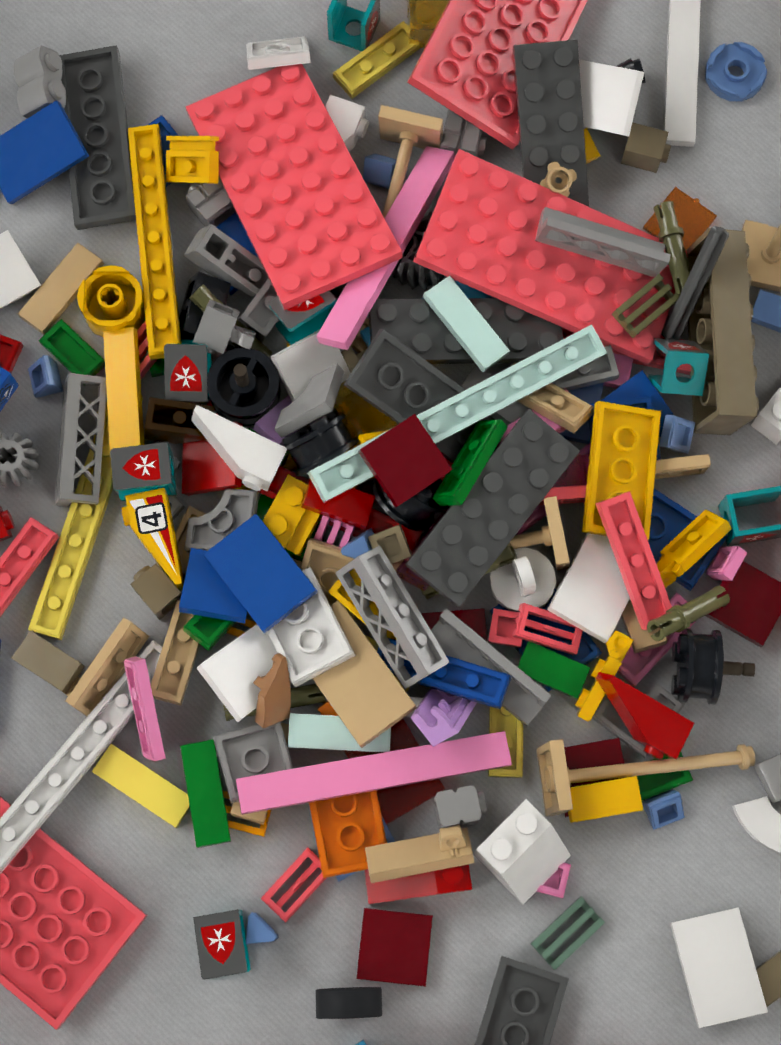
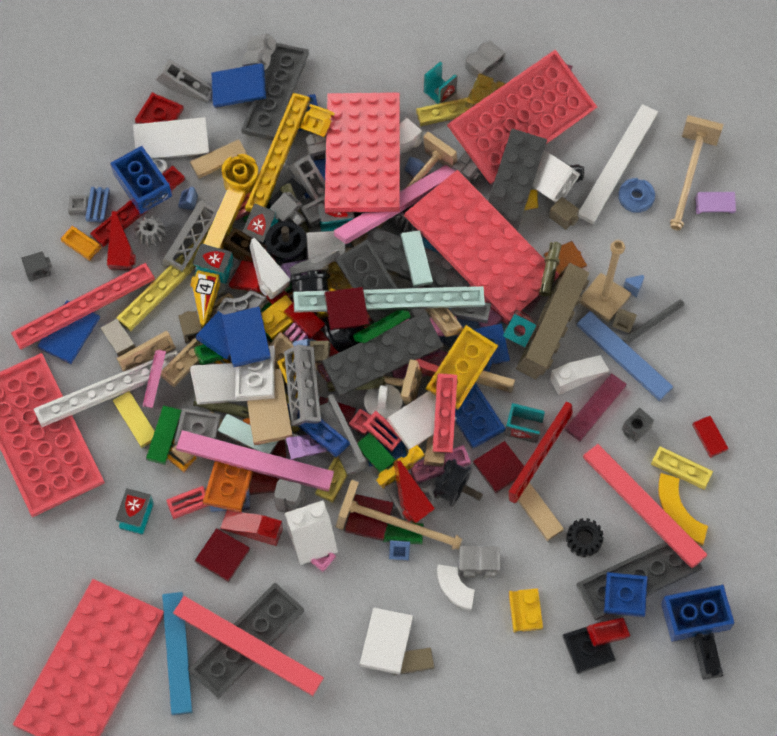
camera: 25 degrees right, 10 degrees down
(72, 350) = (208, 191): green tile -> none
(259, 930) = (156, 515): medium blue slope -> none
(275, 694) = (223, 399): medium nougat slope -> none
(277, 53) = (390, 86): white tile -> none
(348, 1003) = (183, 566): black tyre -> none
(420, 854) = (269, 512): tan hinge -> none
(567, 177) = (509, 207): tan plate -> none
(588, 913) = (297, 586): sand green tile -> none
(601, 242) = (509, 247): light grey fence -> none
(605, 799) = (367, 526): yellow slope -> none
(663, 291) = (532, 286): olive tile -> none
(677, 434) = (504, 364): light blue tile -> none
(680, 617) = (453, 451): olive pin -> none
(691, 545) = (479, 422): yellow hinge -> none
(695, 283) = (549, 288): dark grey axle -> none
(726, 563) = (497, 440): bright pink tile -> none

